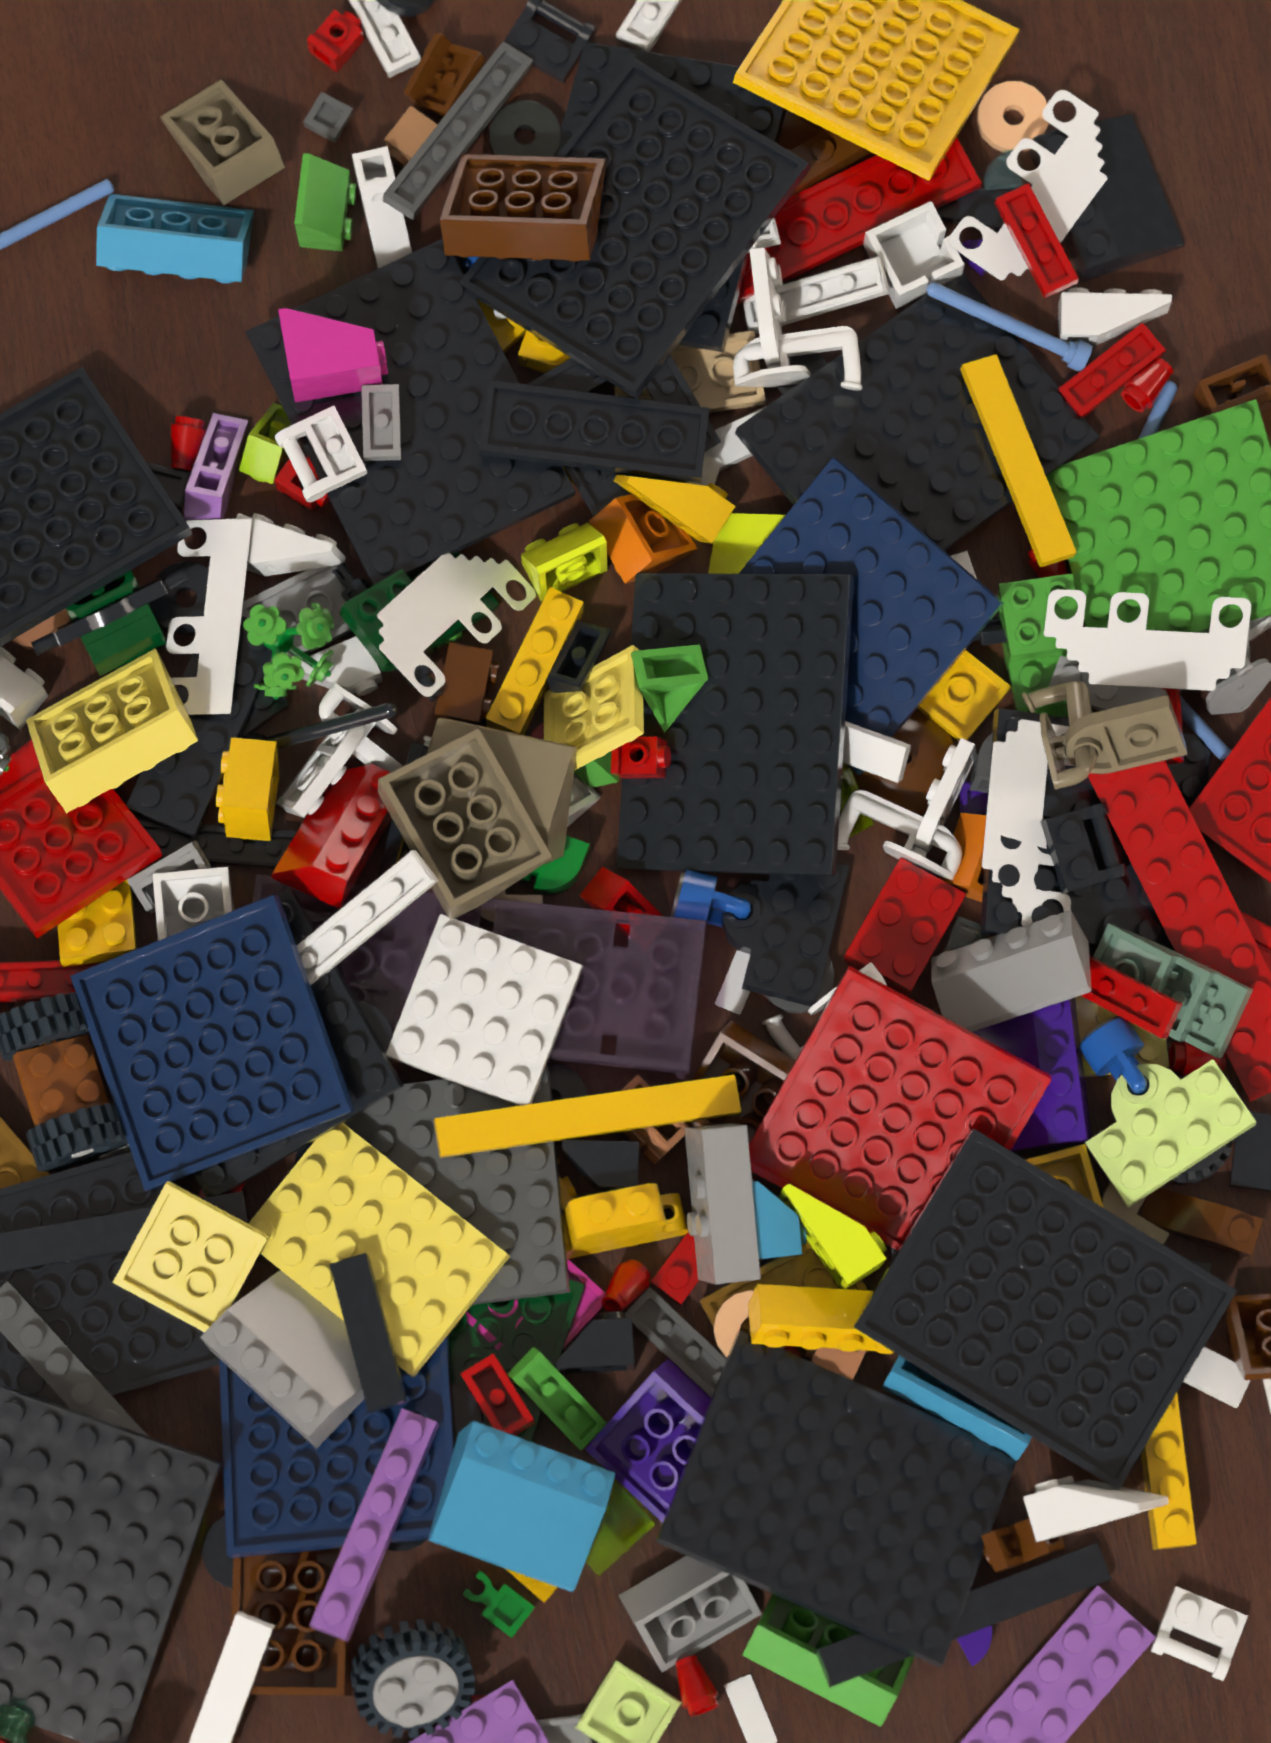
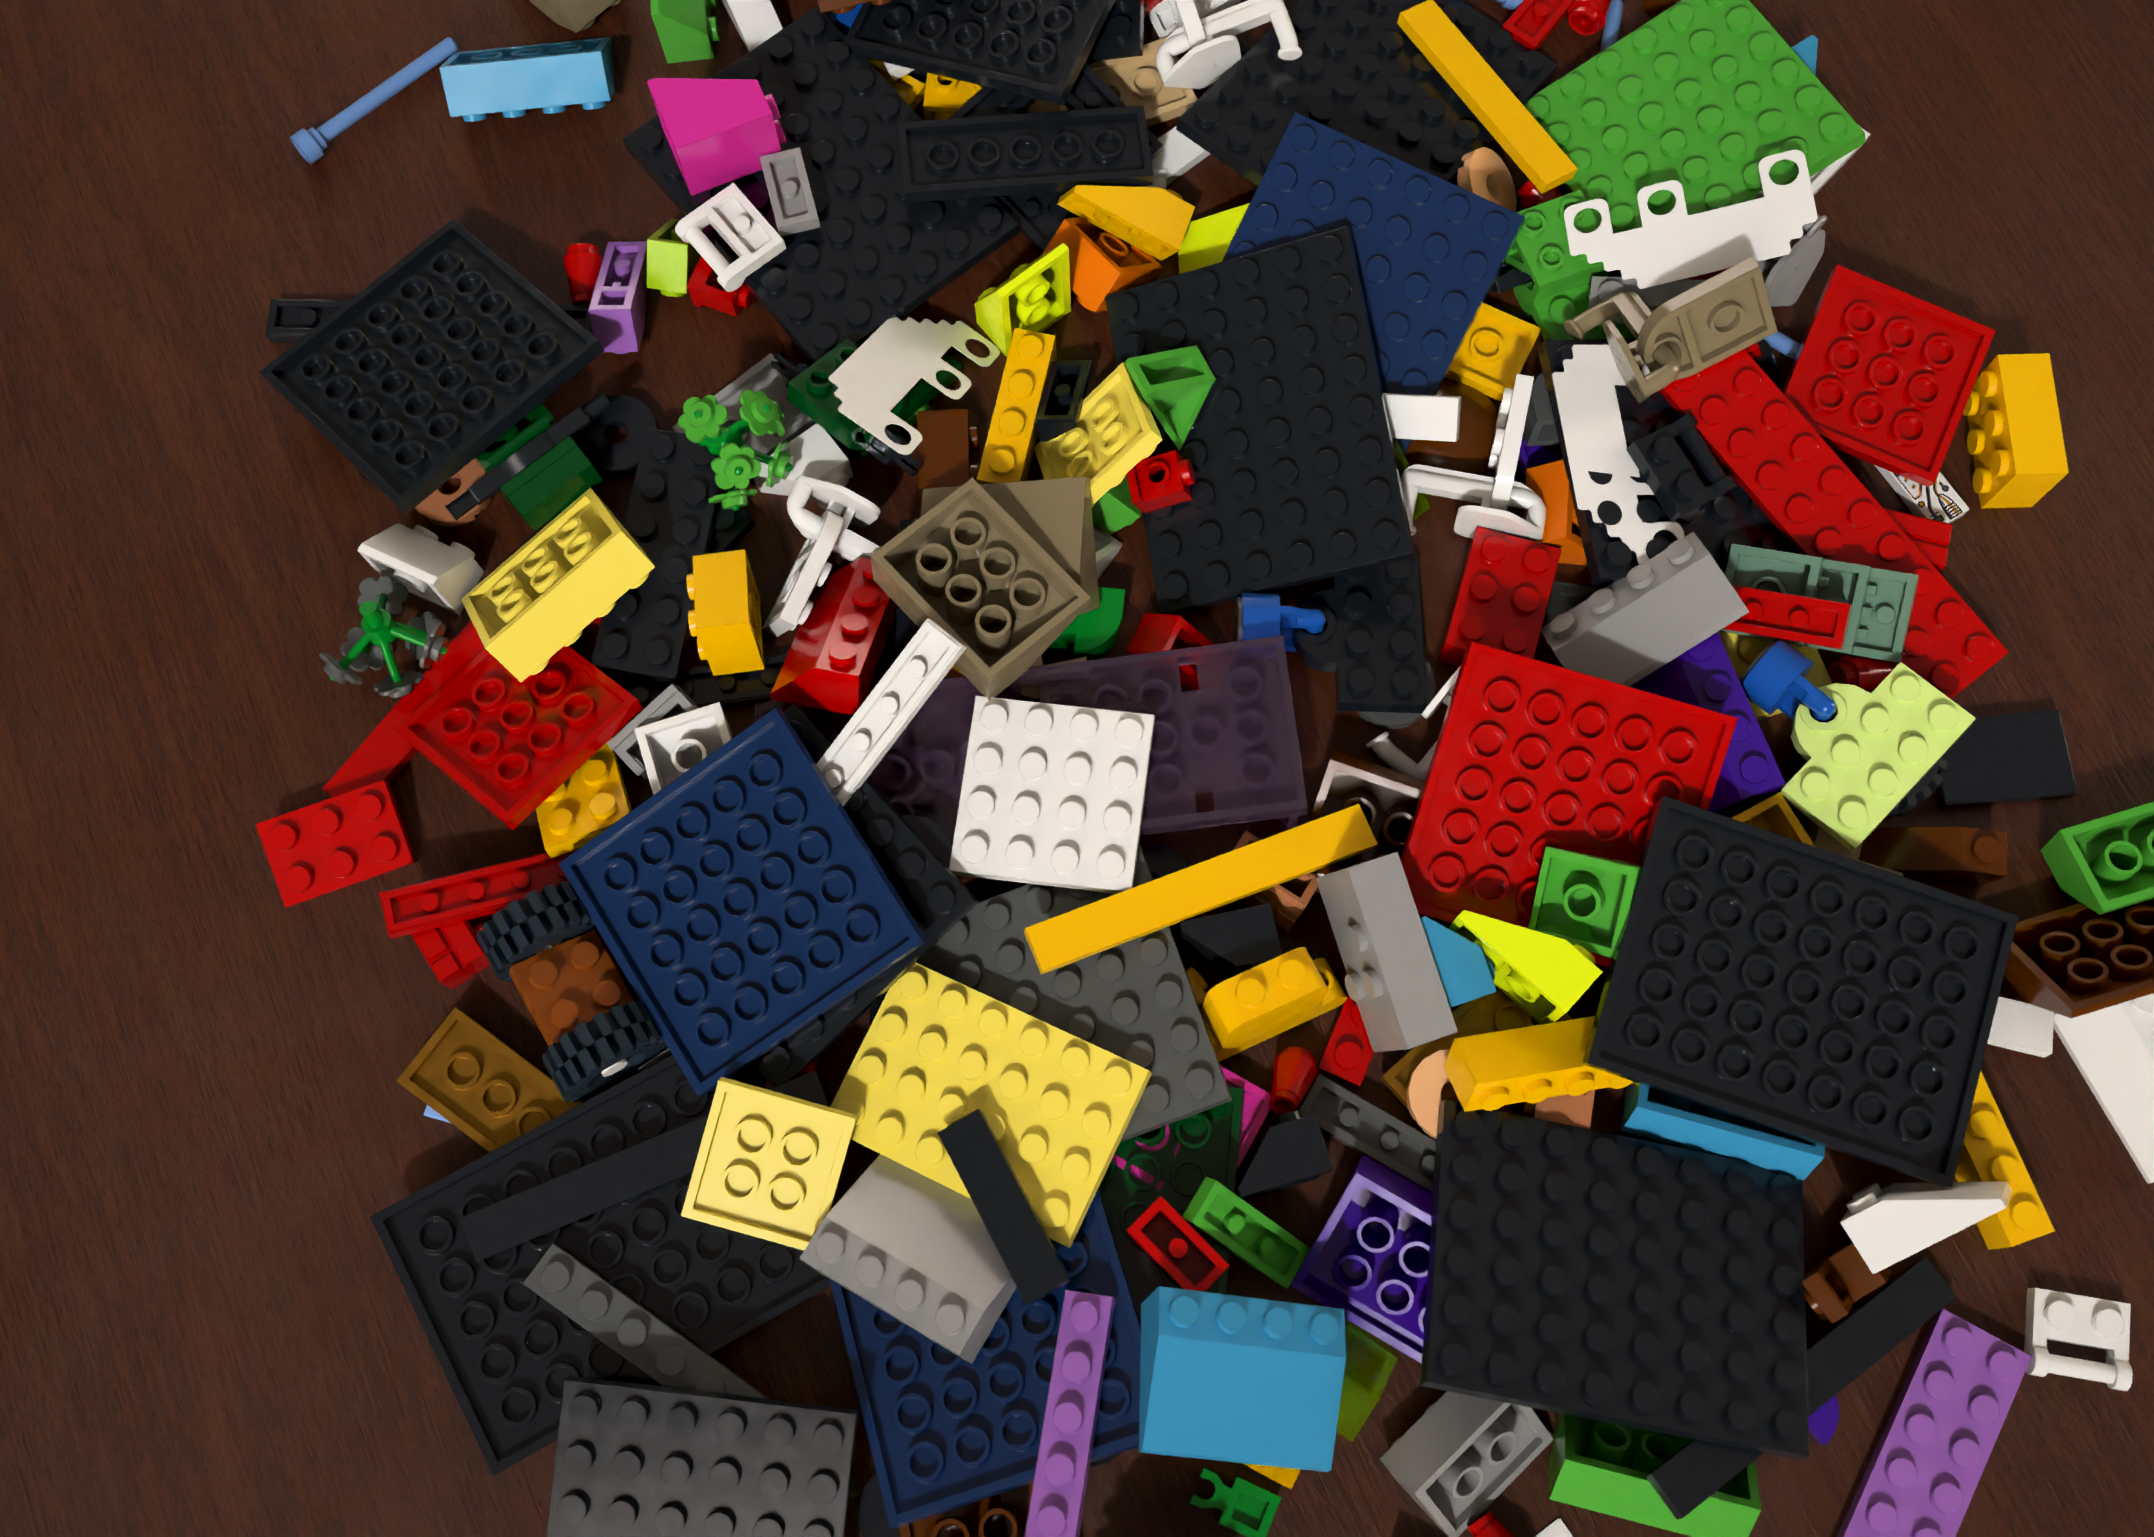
camera: 10 degrees left, 5 degrees down
(220, 626) = (657, 448): white piece -> none
(287, 549) = (701, 358): white slope -> none
(329, 726) = (810, 518): black piece -> none
(731, 993) = (1324, 718): white sticker -> none
(890, 1196) = (1583, 898): none -> bright green slope
(1013, 543) = (1487, 177): none -> light nougat tile

